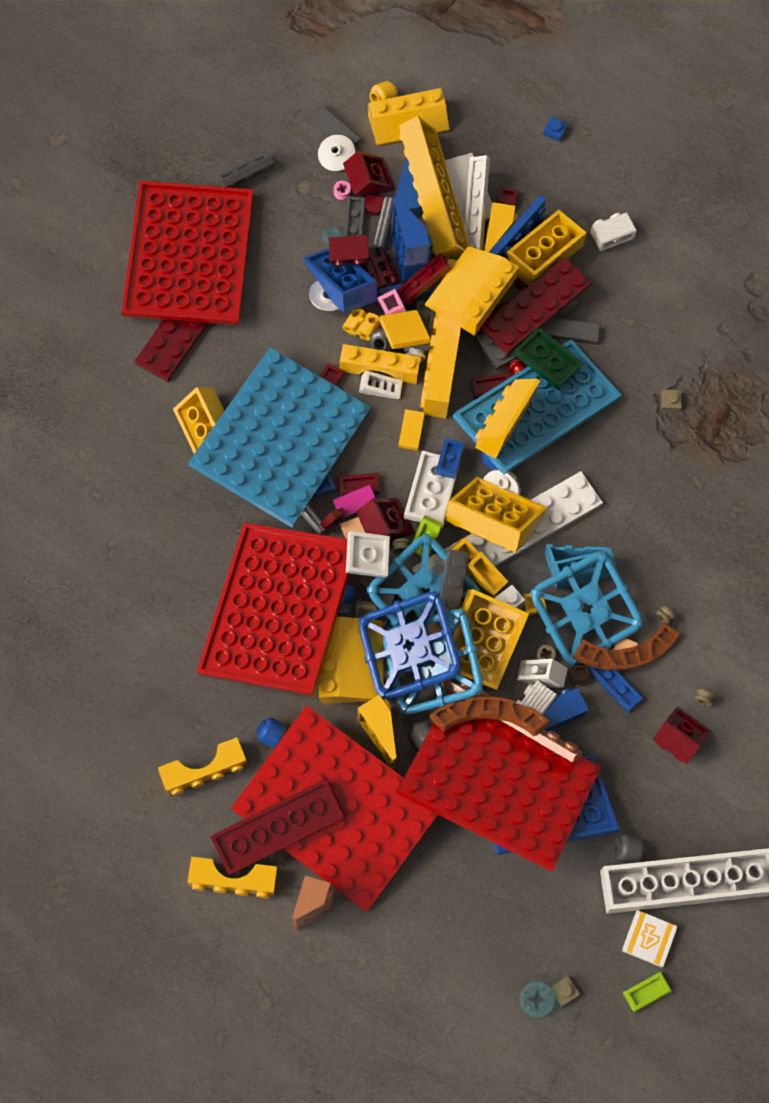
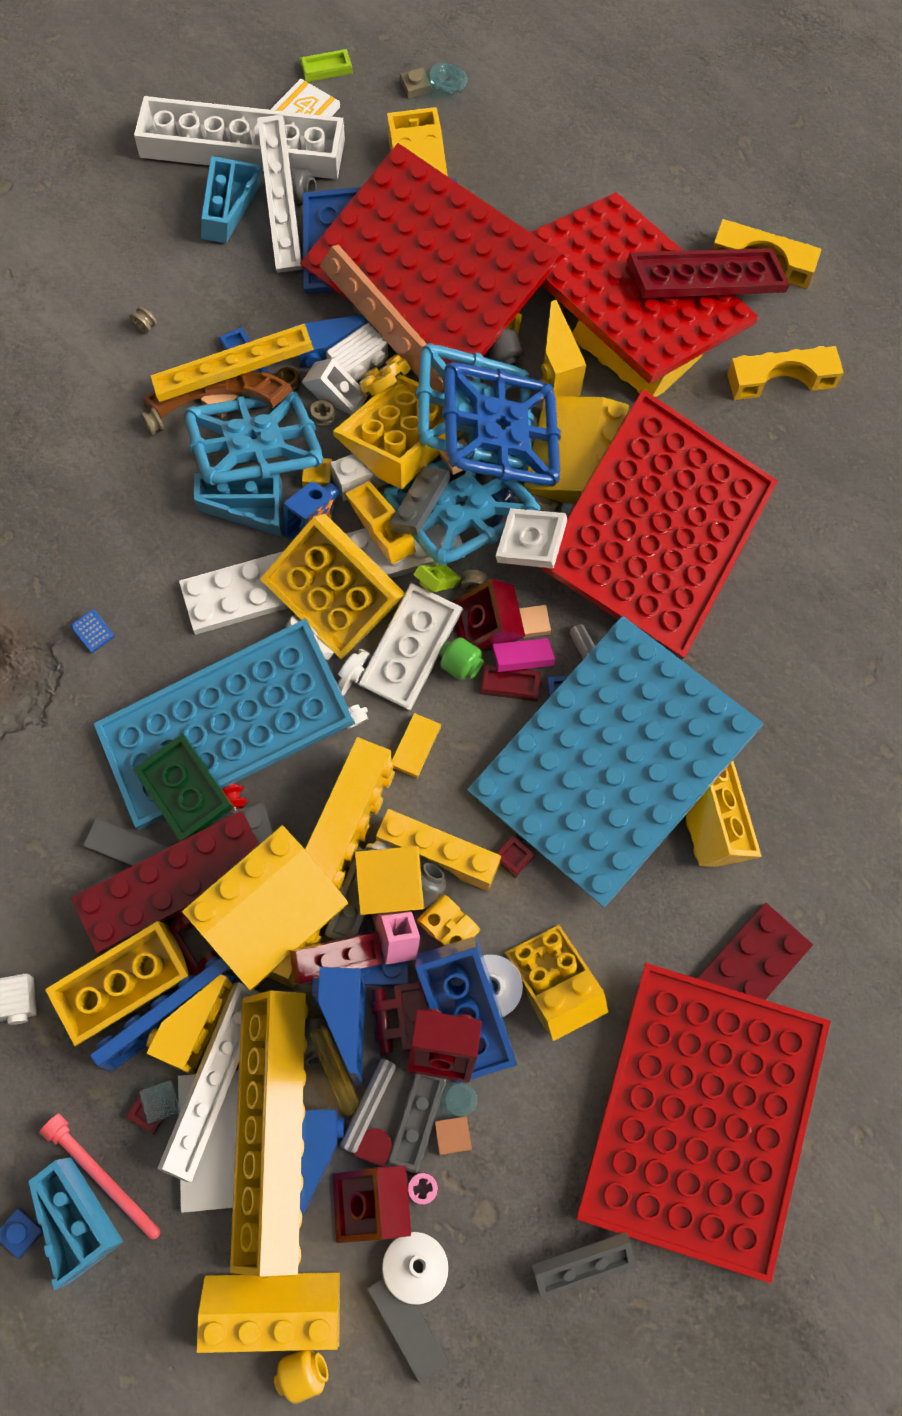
camera: 165 degrees left, 0 degrees up
(271, 732) = (692, 391): blue head -> none
(290, 307) = (558, 983): none -> yellow slope
(312, 902) = (682, 188): nougat slope -> none
(331, 218) = (453, 1135): none -> nougat tile
(333, 518) = (560, 632): dark red tile -> none
(372, 390) = (469, 821): white slope -> none
(396, 487) = (461, 659): none -> bright green head
(449, 458) = (374, 678): blue plate -> none
(457, 435) = (359, 715): none -> white plate
(465, 467) = (353, 670): none -> white plate
(484, 384) = (278, 788): dark red tile -> none
(490, 708) = (418, 331): dark orange tile -> none
(502, 196) = (160, 1102): none -> clear light blue tile
(506, 416) = (277, 685): yellow slope -> none
(508, 674) = (379, 380): none -> yellow plate
(527, 134) = (71, 1220): none -> dark azure wedge
(532, 560) = (305, 505): none -> blue torso
(541, 906) = (420, 133): none -> yellow slope
(553, 176) = (58, 1132): none -> coral piece
(621, 663) = (231, 362): none -> yellow plate
(638, 824) = (279, 193): none -> white plate
(647, 457) = (92, 631): none -> blue slope
(670, 400) = (24, 707): dark tan plate -> none
(681, 735) = (187, 285): dark red slope -> none
(681, 821) = (227, 196): none -> dark azure wedge

